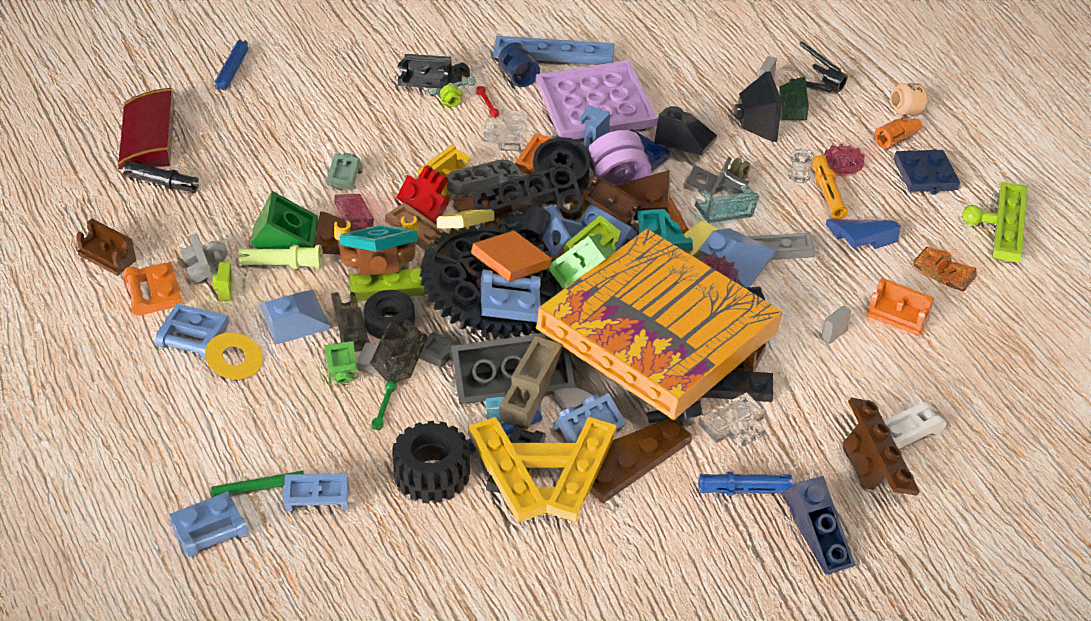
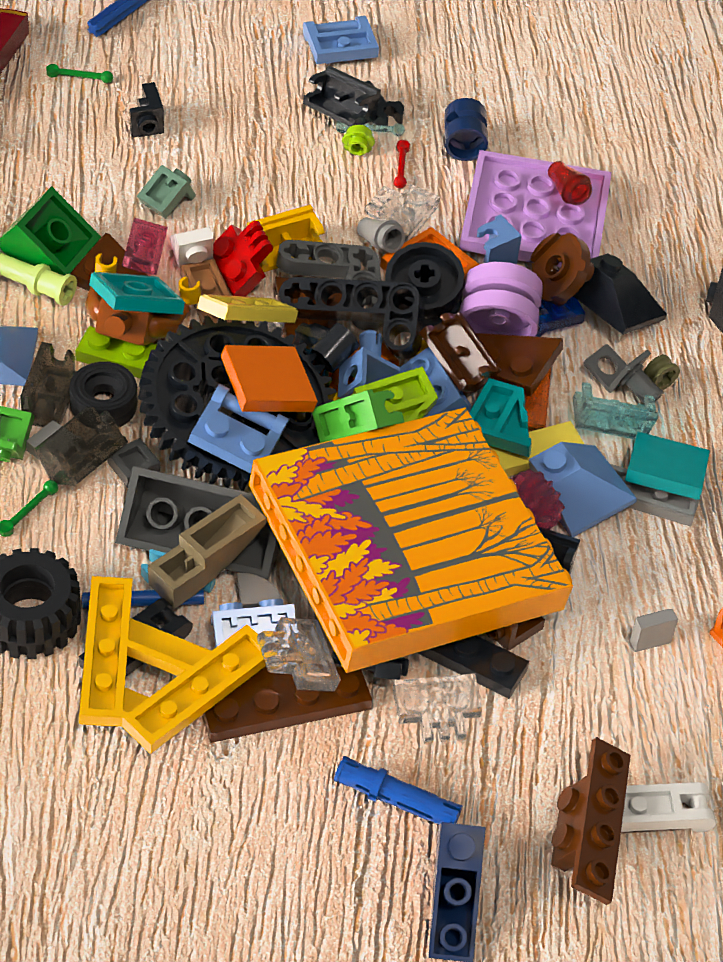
camera: 20 degrees right, 5 degrees up
(209, 121) = (53, 71): none -> green hinge
(298, 124) = (149, 115): none -> black bracket
(387, 198) = (192, 246): none -> white bracket
(396, 37) = (341, 40): none -> medium blue plate
(508, 148) = (382, 234): none -> light grey cone
(561, 50) = (534, 128): medium blue plate -> none
(611, 74) = (571, 184): none -> clear red cone
(633, 420) = (302, 651): none -> clear hinge
(654, 121) = (574, 270): none -> reddish brown plate
(780, 224) = (668, 465): none -> teal tile

